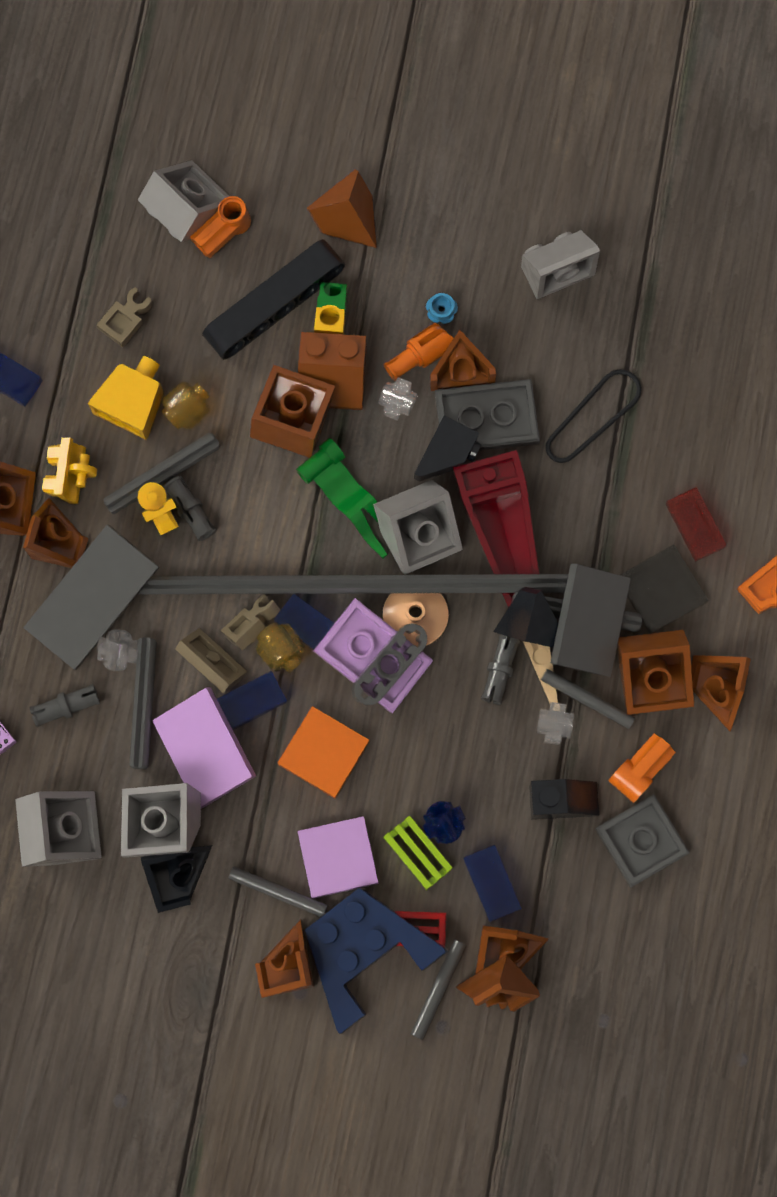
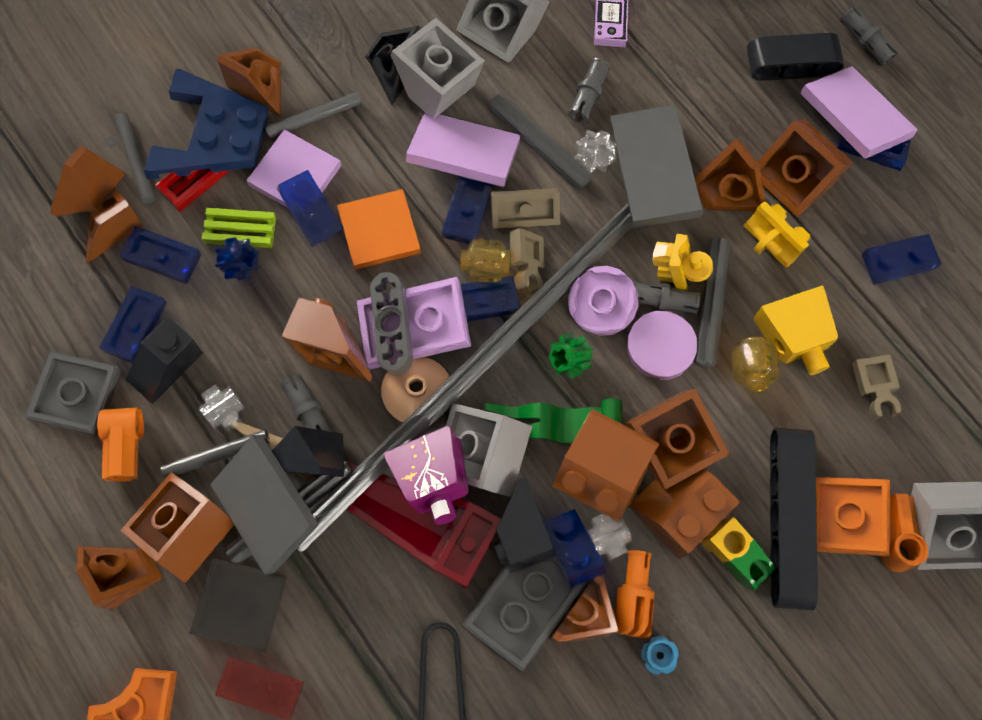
camera: 125 degrees right, 5 degrees down
(227, 480) = (661, 345): none -> lavender tile
(233, 543) = (603, 300): none -> lavender tile
(238, 263) = (853, 516): none -> orange tile
(296, 529) = (570, 355): none -> green gear
(346, 211) = (827, 658): dark orange slope -> none
(356, 434) = (605, 465): none -> dark orange slope
(357, 811) = (309, 208): none -> clear blue plate
(426, 412) = (574, 548): none -> clear blue plate
(443, 690) = (325, 339): none -> slope
(469, 533) = (431, 473): none -> torso
(558, 847) = (133, 323): none -> clear blue plate

